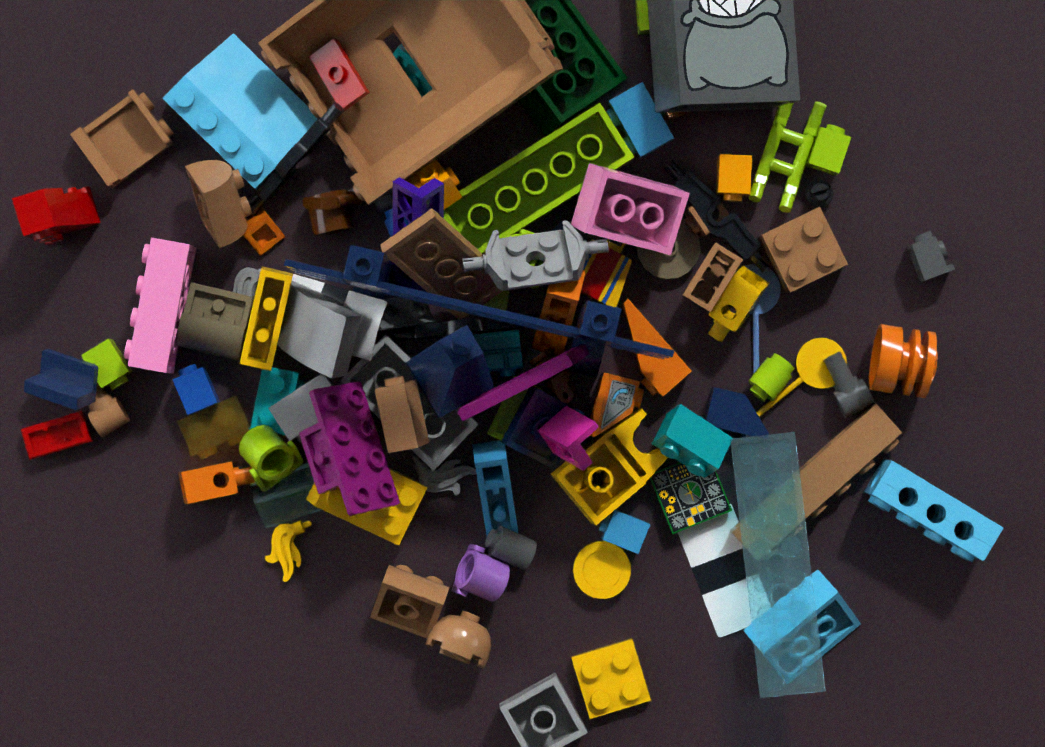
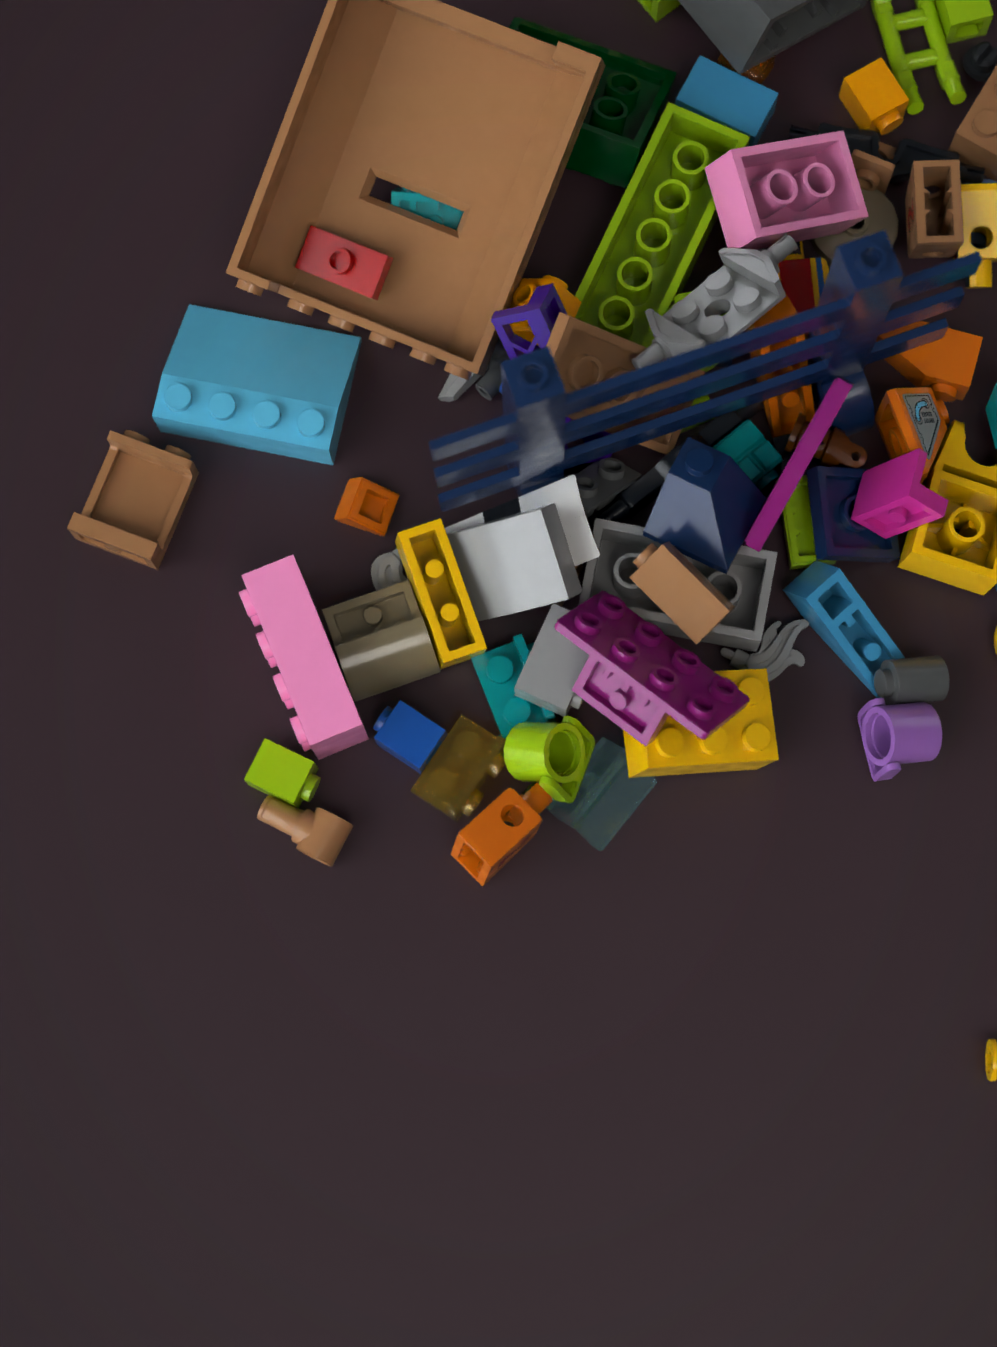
camera: 25 degrees left, 10 degrees down
(51, 213) = (105, 628): red wedge -> none
(56, 435) = (274, 900): red plate -> none
(64, 380) = (242, 822): dark blue panel -> none
(218, 199) = (292, 490): medium nougat brick -> none
(284, 547) = (639, 860): yellow piece -> none
(299, 151) = (353, 376): black piece -> none
(331, 211) = (433, 418): reddish brown piece -> none
(409, 600) = (836, 823): medium nougat brick -> none
(461, 638) = (929, 827): medium nougat cylinder -> none

